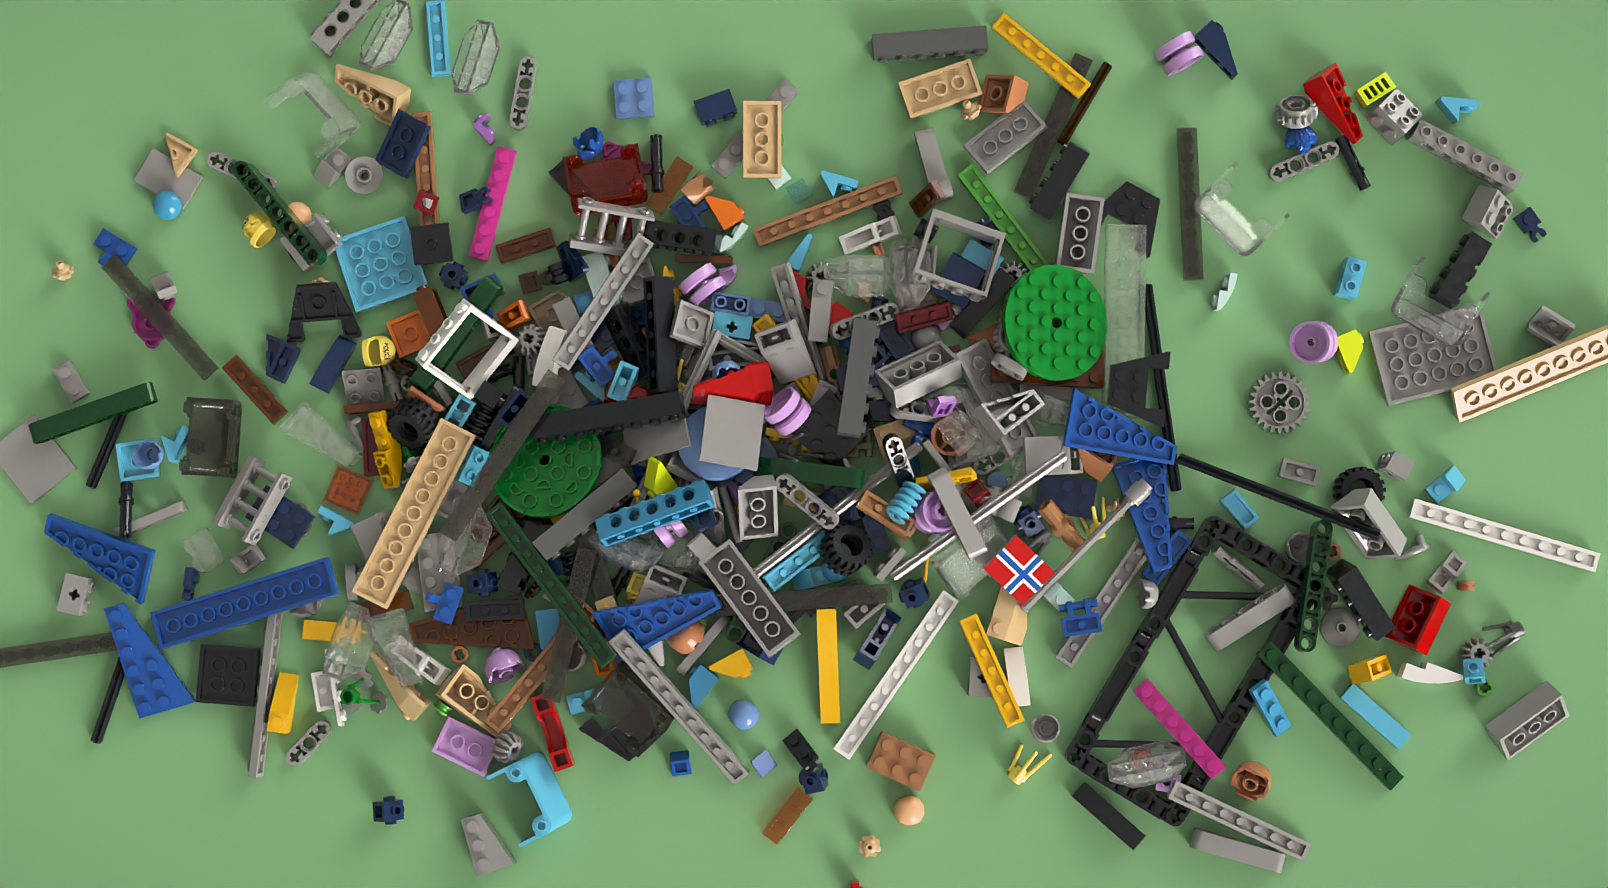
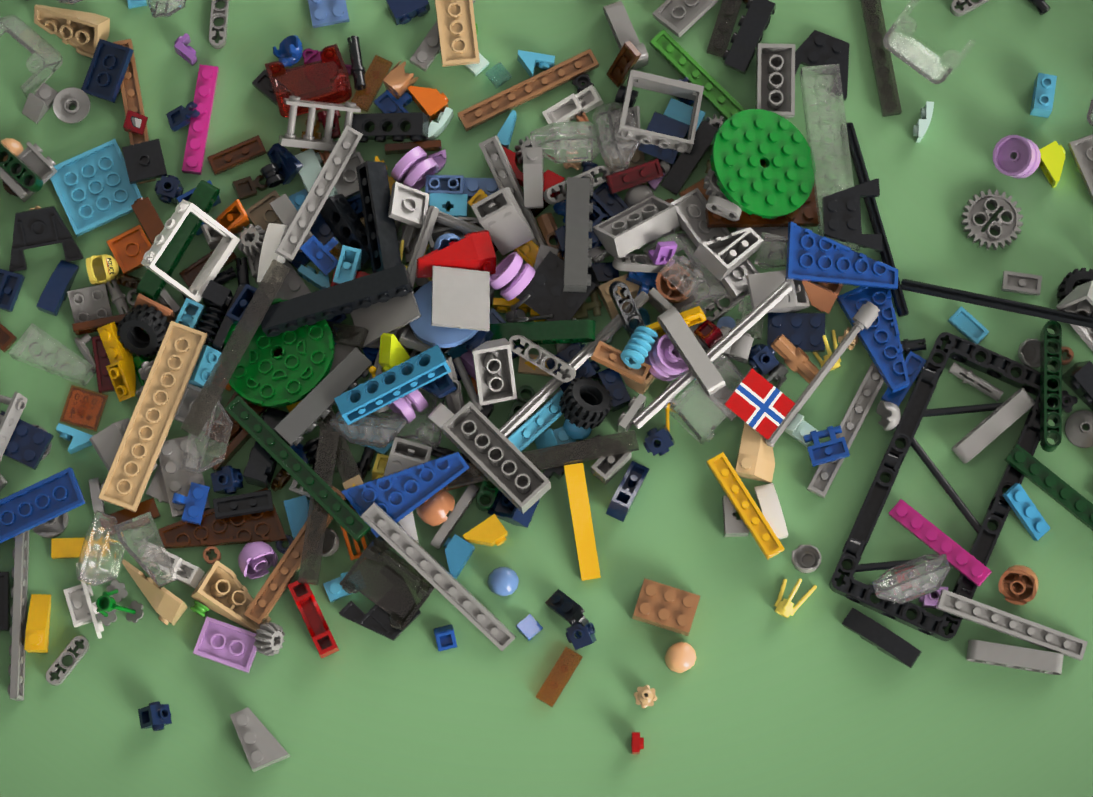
camera: 10 degrees left, 10 degrees down
(545, 789) = (324, 696): medium azure windscreen -> none
(896, 674) = (650, 524): white plate -> none

